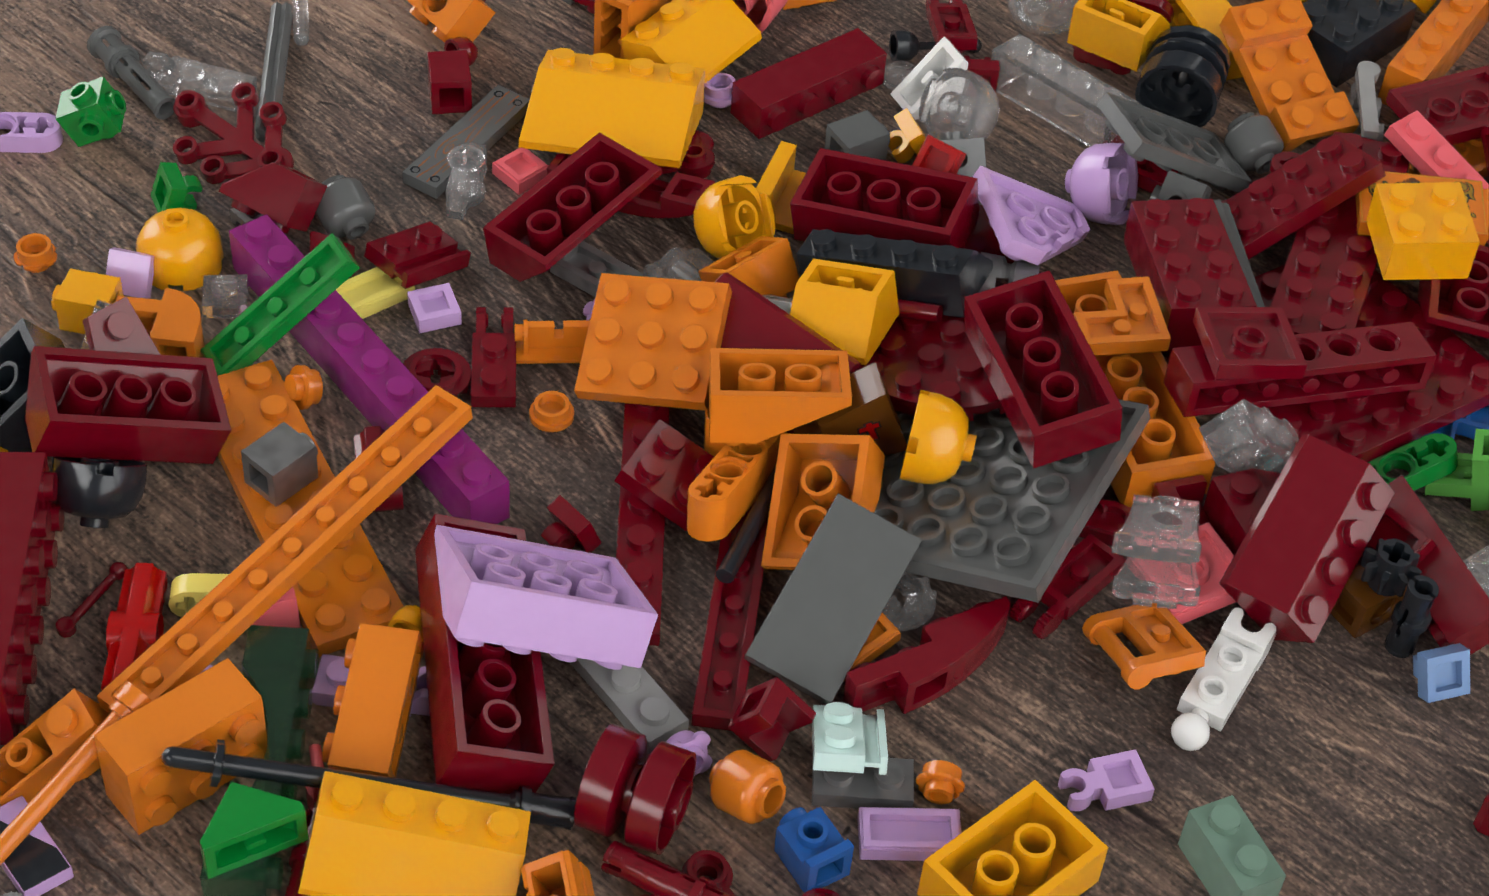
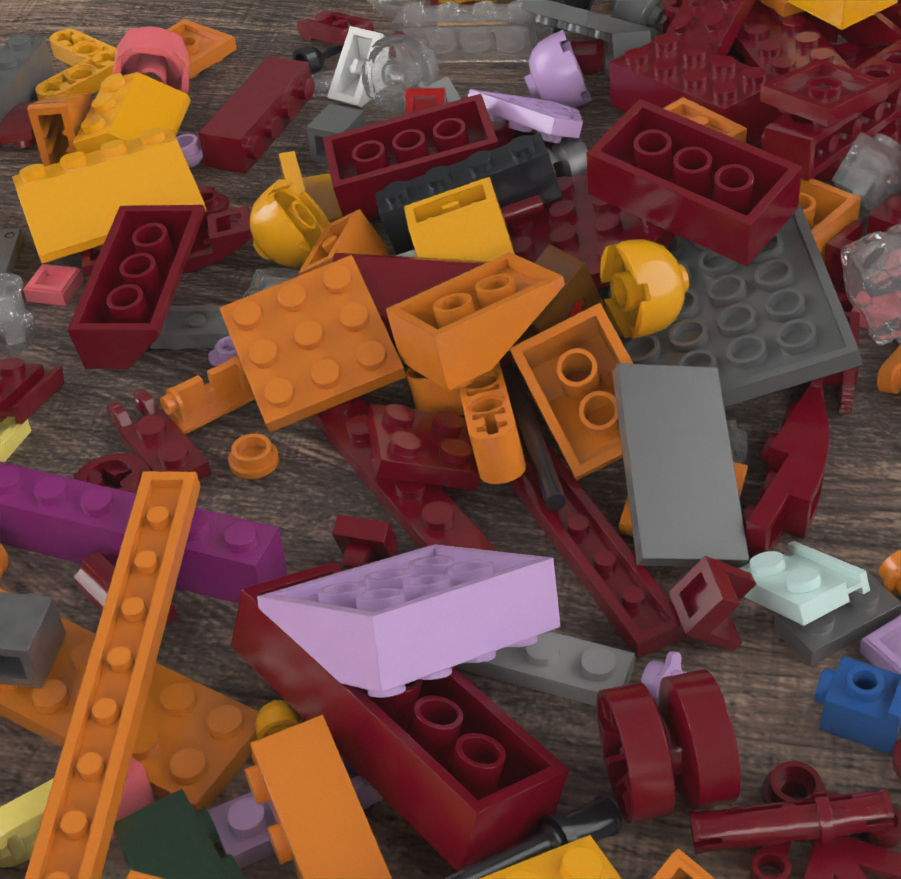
camera: 25 degrees left, 5 degrees down
(434, 308) = (63, 427): lavender plate -> none
(747, 786) = (755, 680): orange head -> none
(909, 137) = (375, 107): light orange tile -> none

